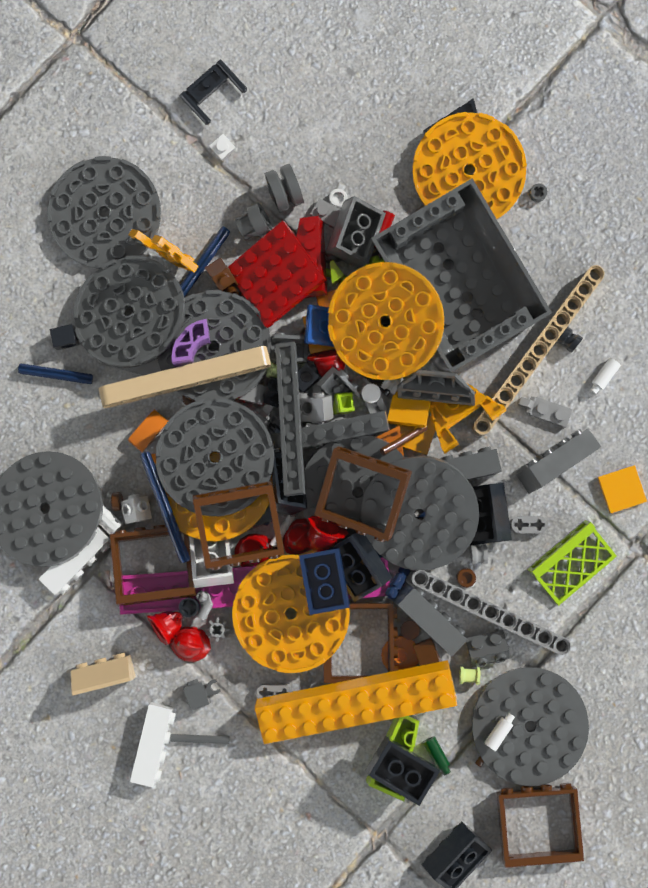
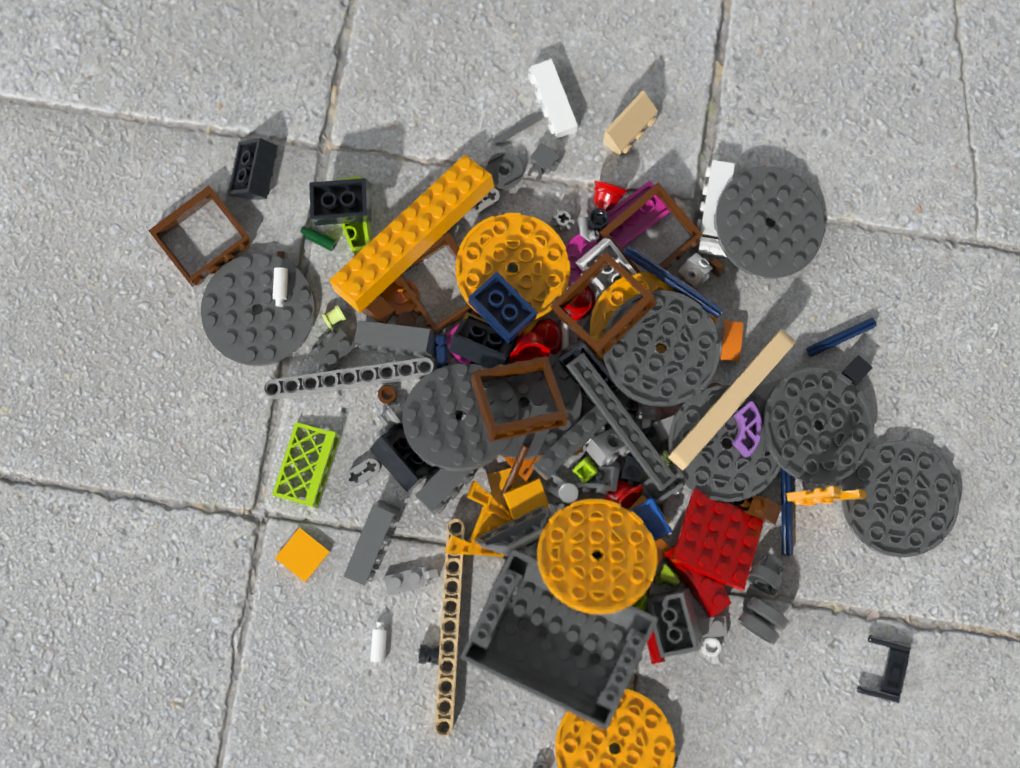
camera: 145 degrees right, 5 degrees down
(191, 644) = (576, 195): red piece -> none
(222, 147) = (841, 625): white plate -> none
(230, 715) = (509, 161): none -> dark grey plate

